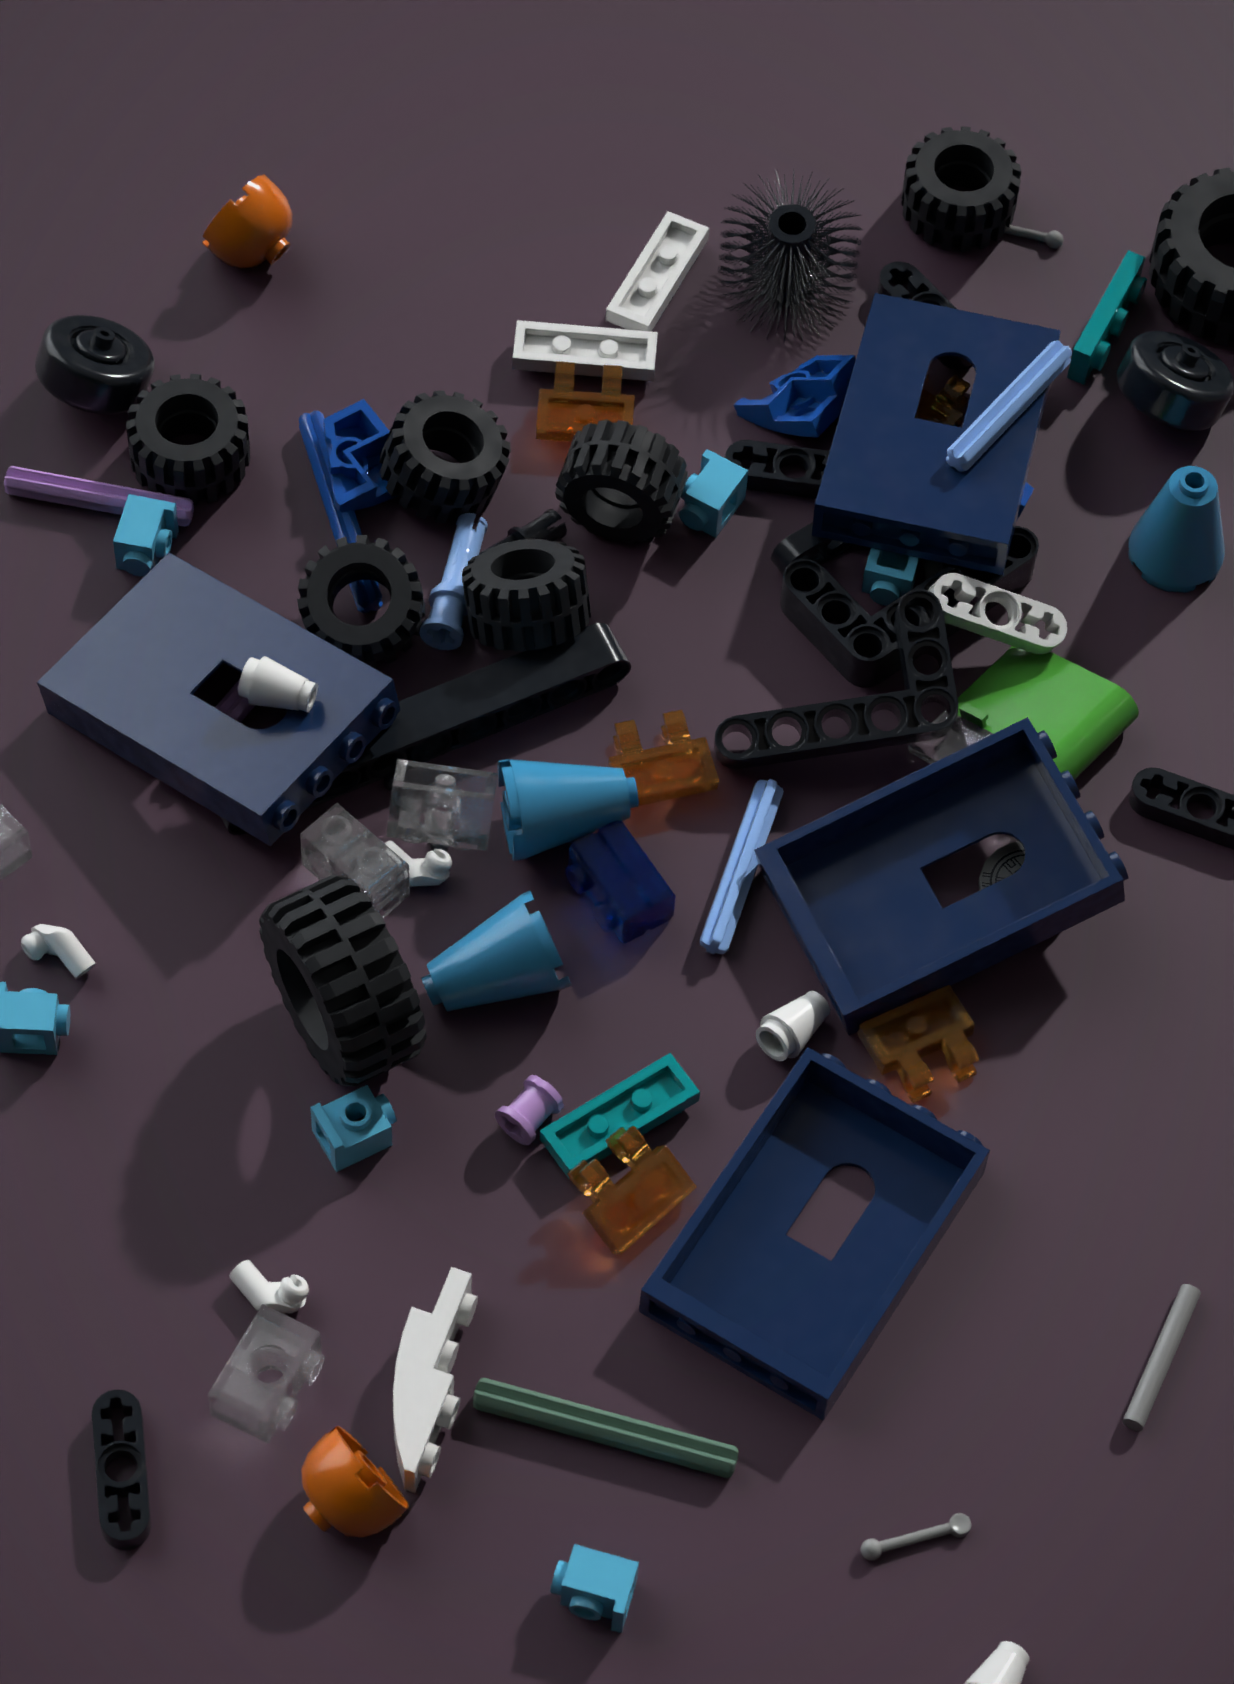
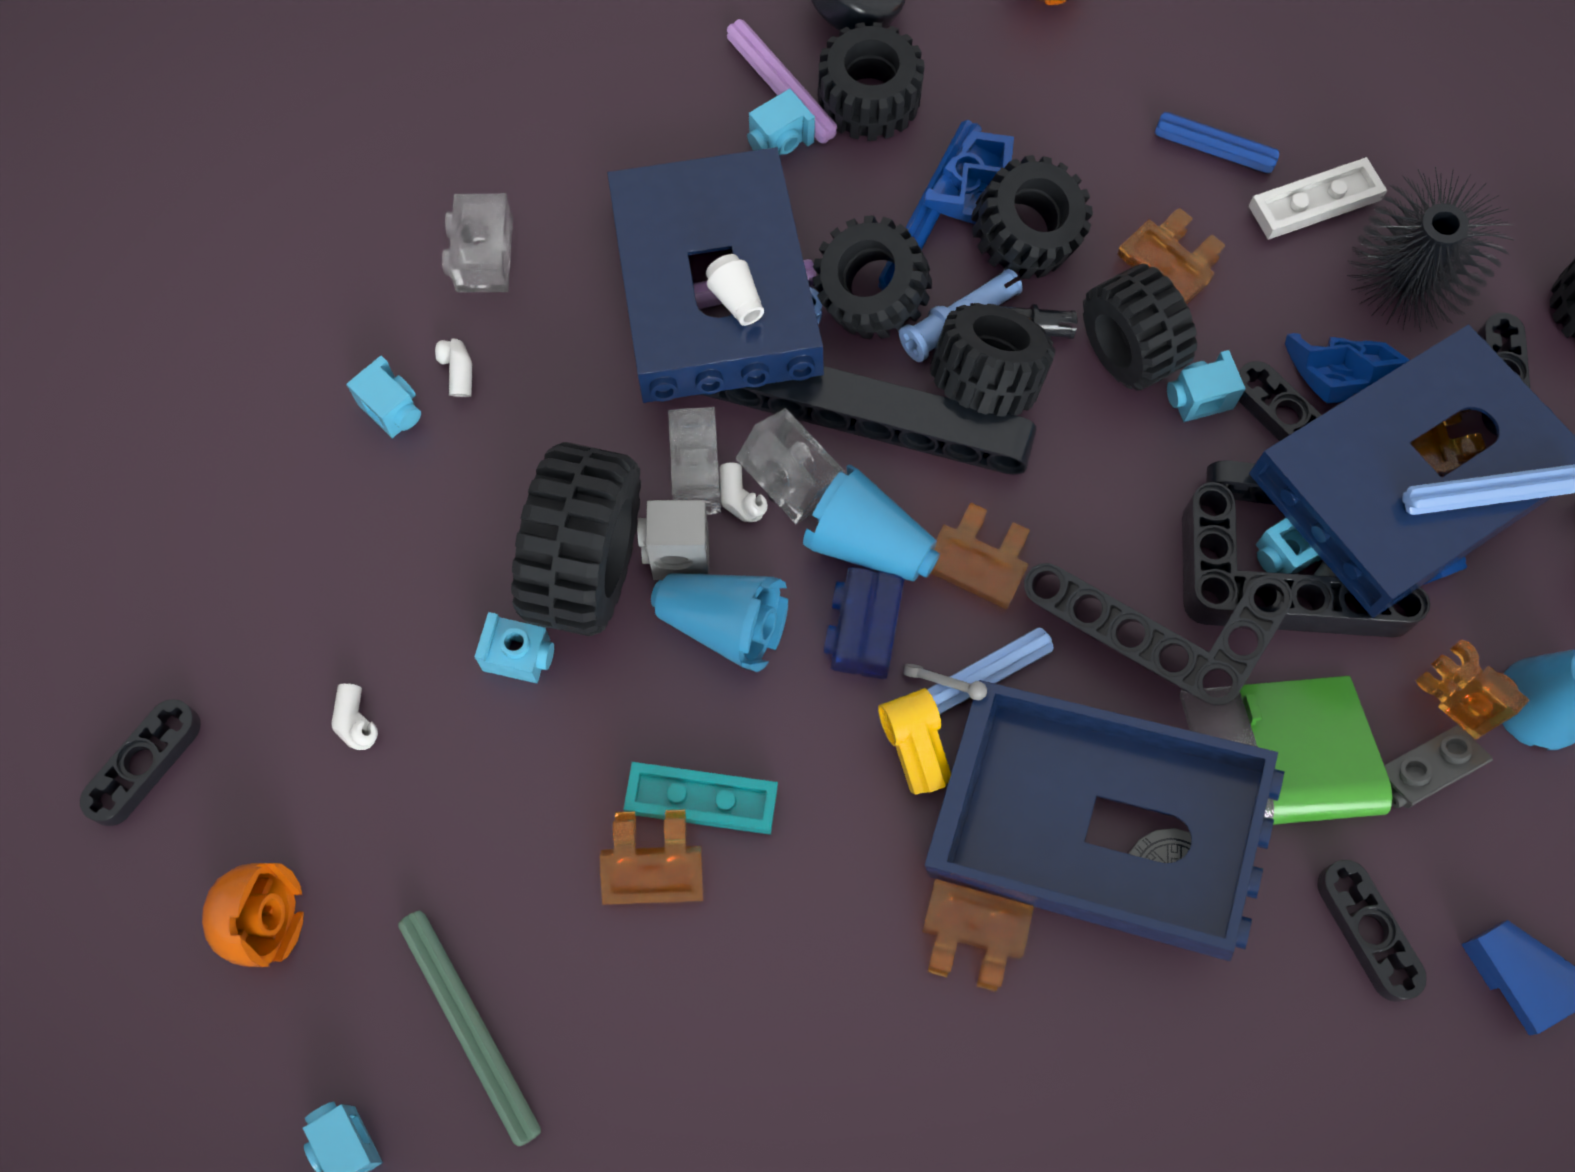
camera: 45 degrees right, 10 degrees up
(268, 1343) = (256, 776): clear brick -> none
(418, 922) = (674, 537): none -> light grey brick
(422, 1379) = (363, 887): white slope -> none
(529, 1110) = (642, 739): lavender bush -> none
(530, 284) = (1217, 142): none -> blue axle
(590, 348) = (1212, 215): white plate -> none
(738, 927) = (912, 727): none -> yellow piece
(761, 856) = (976, 690): none -> light grey hinge
(774, 1303) = (677, 1032): dark blue panel -> none
(792, 1026) = (889, 836): white cone -> none
(1025, 638) = (1350, 680): white beam -> none
(1120, 578) = (1472, 696): none -> clear orange plate
(1141, 653) = (1434, 766): none -> dark grey hinge

